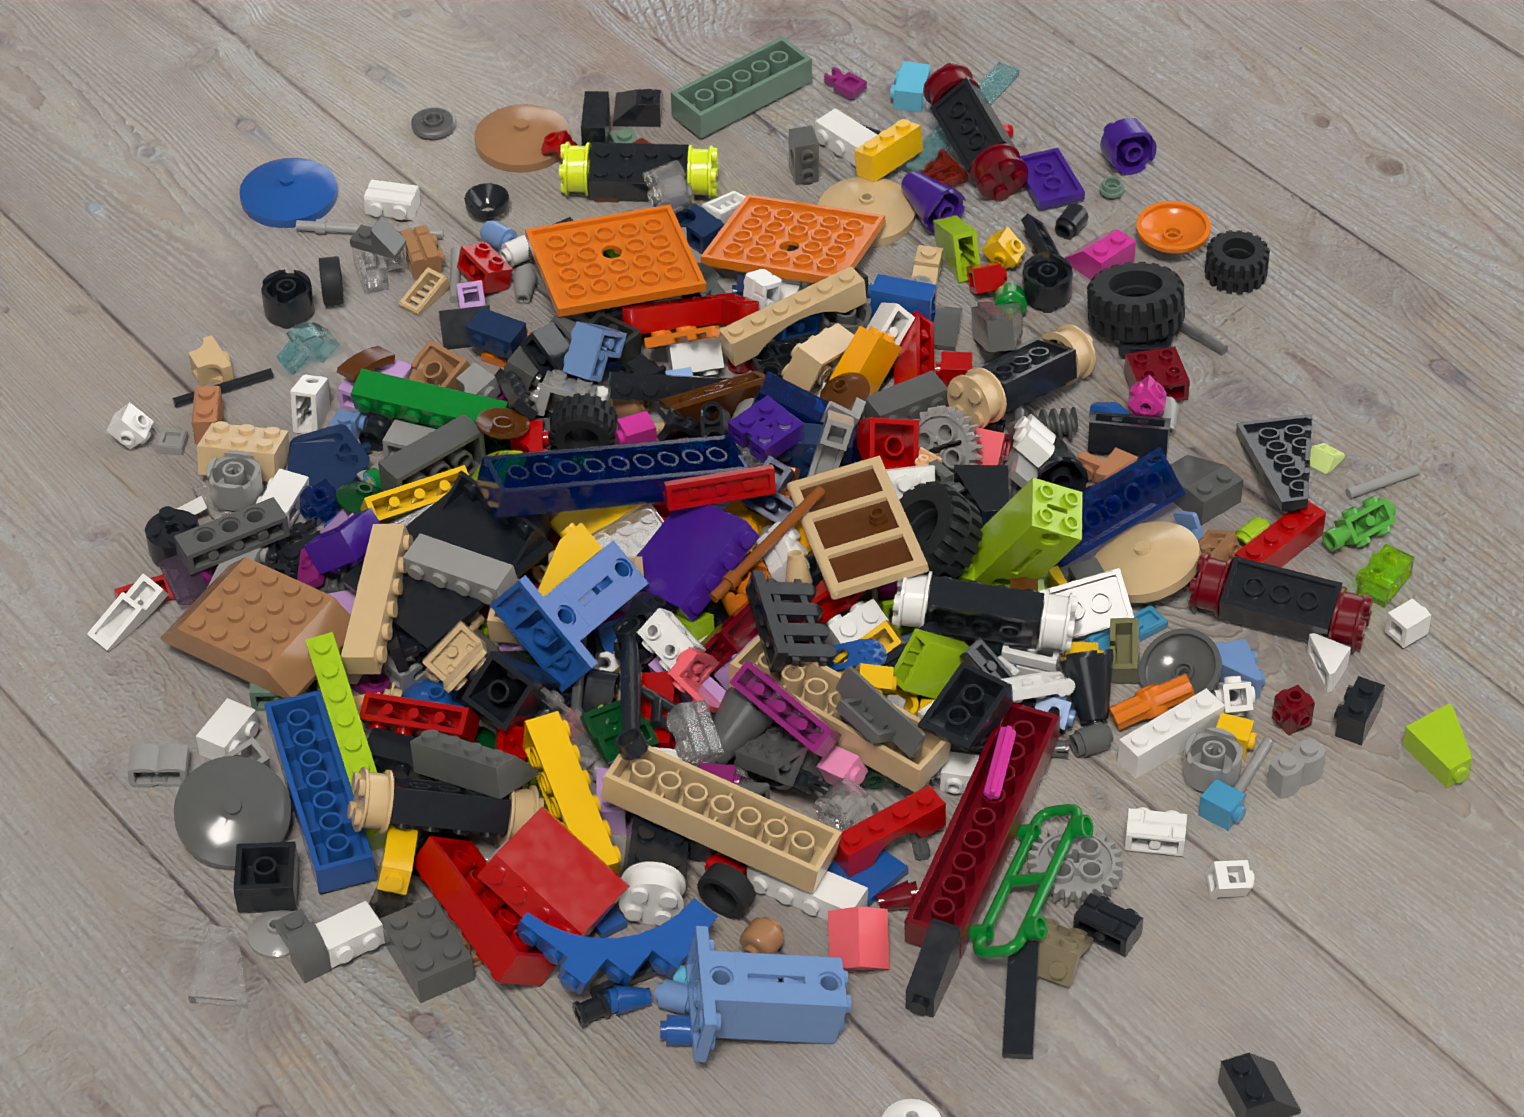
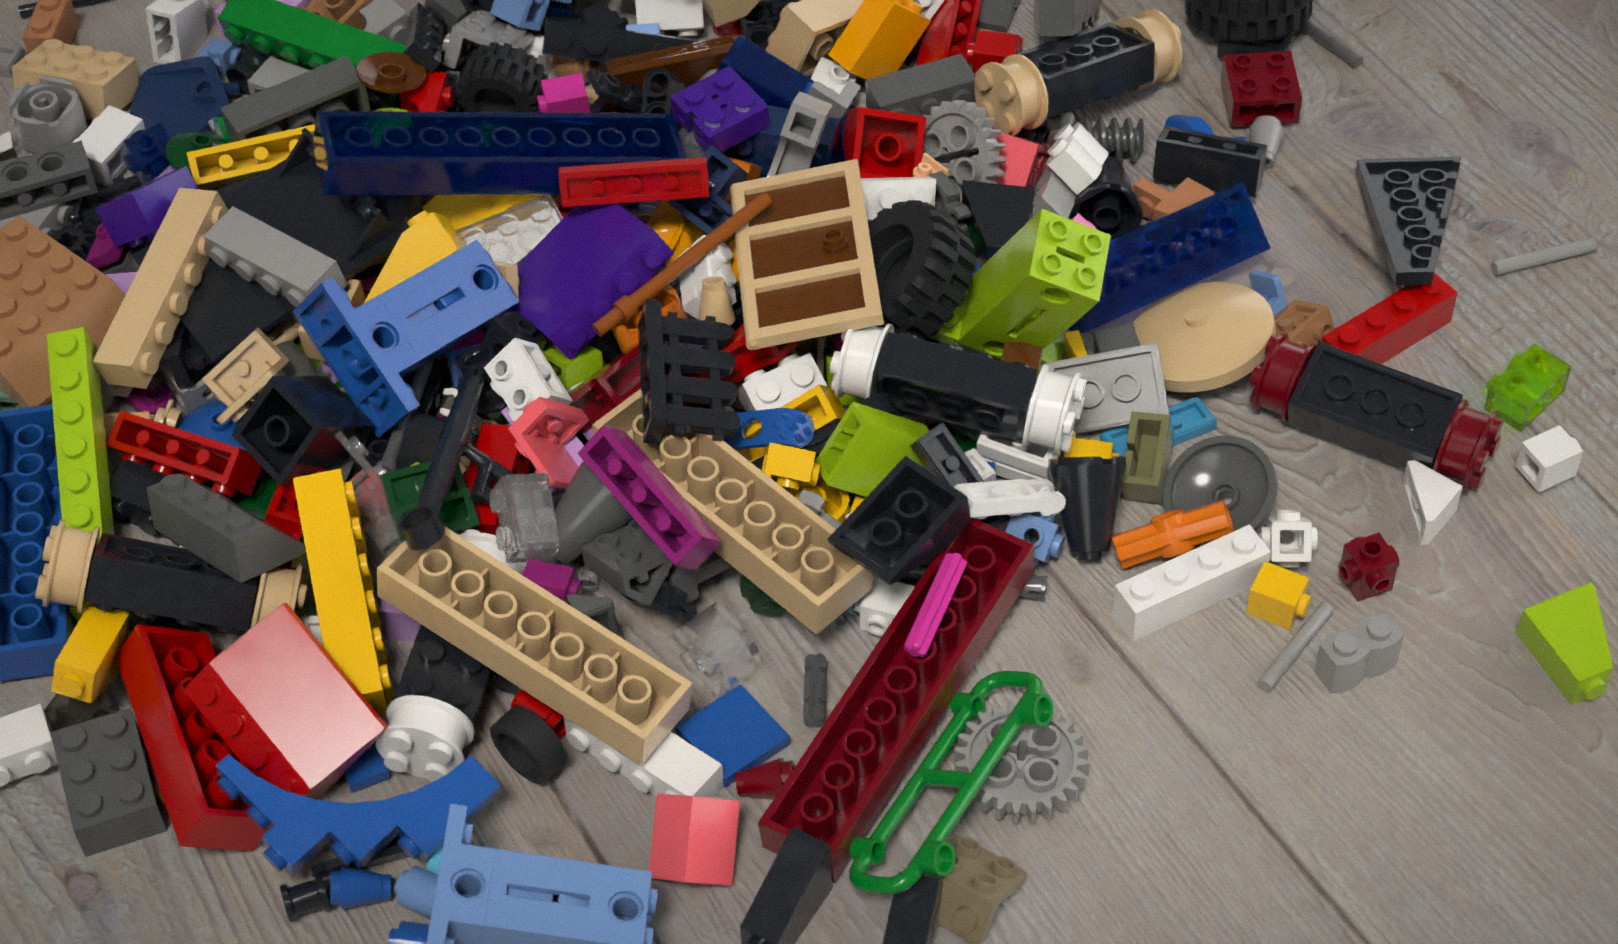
camera: 10 degrees right, 5 degrees up
(762, 936) = (561, 821): medium nougat head -> none
(840, 765) = (724, 583): bright pink brick -> none
(845, 389) = (842, 65): reddish brown dish -> none
(875, 714) = (769, 520): dark grey bracket -> none
(917, 813) = (728, 697): red arch -> none
(1091, 739) = (1079, 579): dark grey brick -> none
(1109, 923) = (1052, 856): black brick -> none
(1147, 398) = (1240, 115): dark pink brick -> none
(1156, 831) = (1144, 724): white brick -> none
(1208, 487) = (1302, 242): dark grey slope -> none
(1212, 757) = (1241, 630): light grey brick -> none
(1222, 805) = (1245, 695): dark azure brick -> none
(1224, 871) = (1247, 798): white brick -> none
(1241, 661) = (1305, 490): medium blue slope -> none
(1251, 530) = (1351, 306): lime brick -> none
(1325, 457) = (1470, 216): yellowish green slope -> none
(1356, 526) = (1499, 315): bright green brick -> none
(1359, 710) = (1461, 577): black brick -> none

